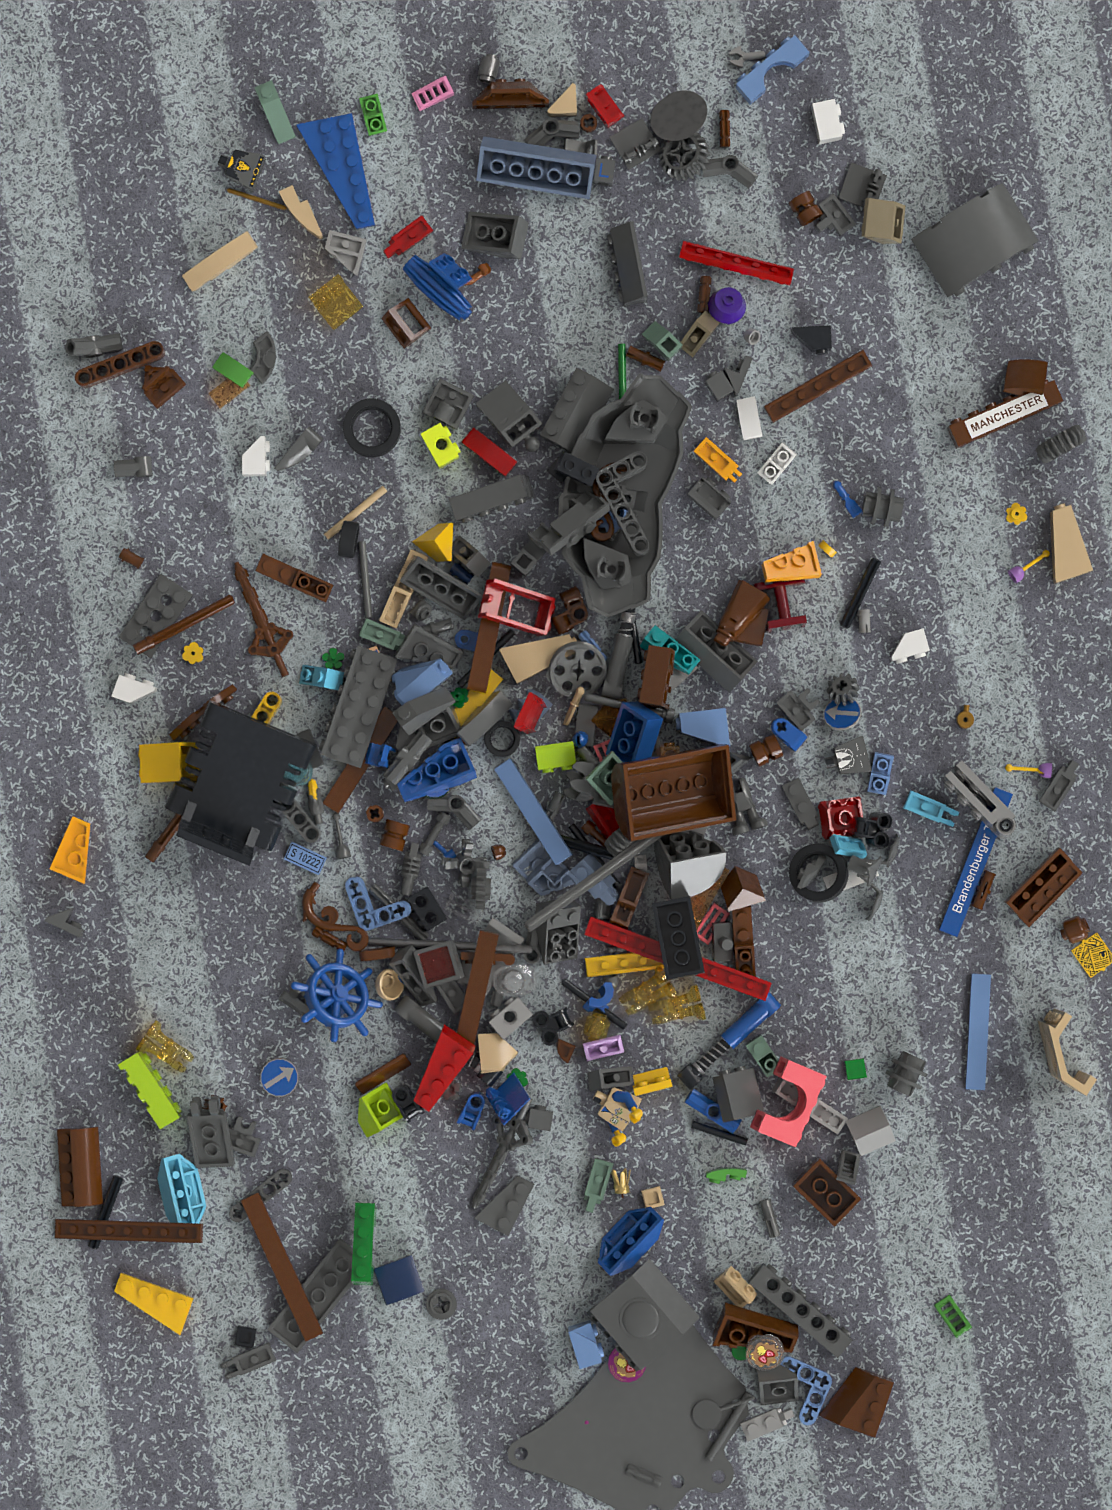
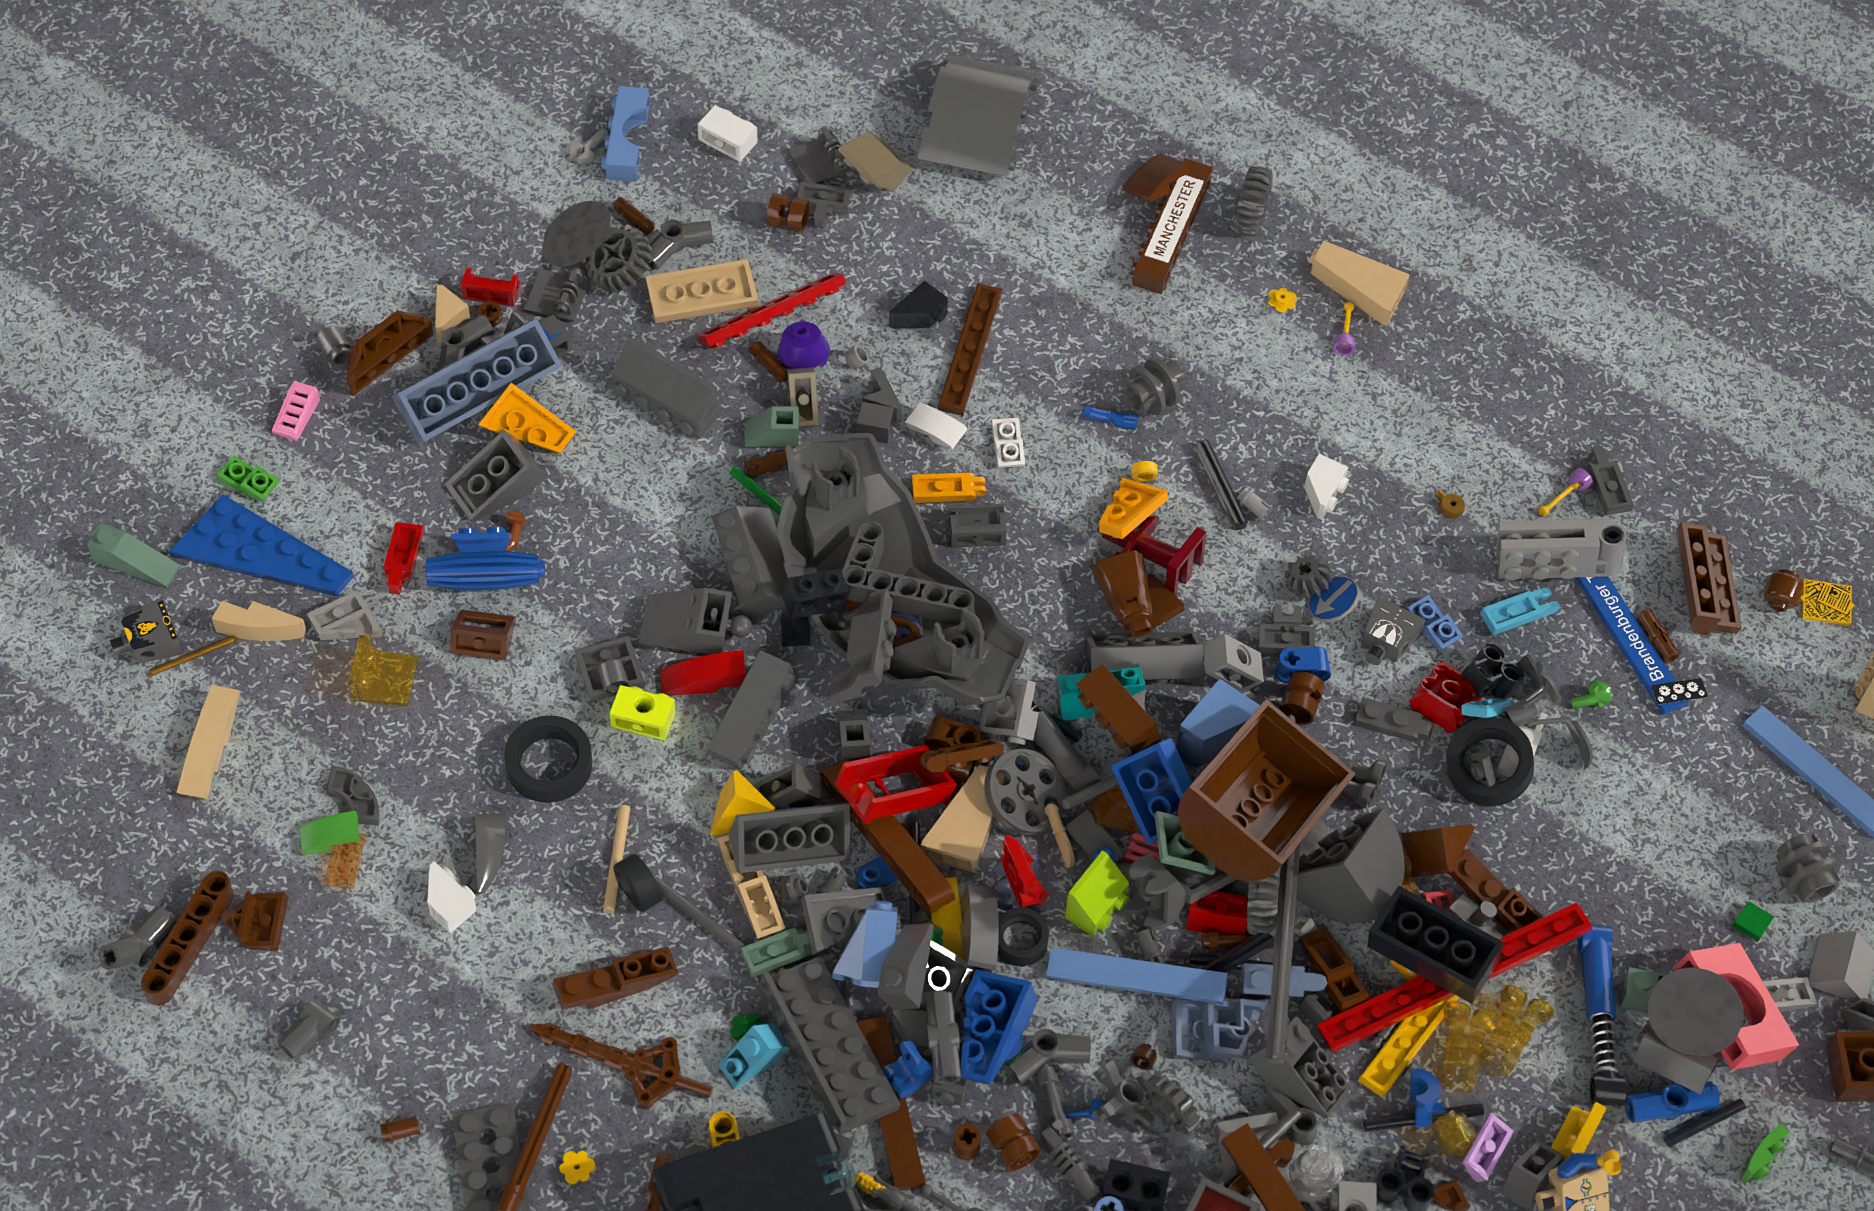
camera: 45 degrees left, 30 degrees down
(542, 216) = (527, 421): none -> light orange wing
(561, 623) = (958, 755): none -> reddish brown hinge
(609, 628) = (1012, 715): none -> light grey plate
(712, 215) = (701, 291): none -> tan plate
(750, 701) = (1233, 662): none -> light grey brick
(758, 1088) = (1695, 1011): none -> flat silver sticker
(916, 889) = (1598, 695): none -> bright green plate
(958, 927) = (1679, 691): none -> black sticker

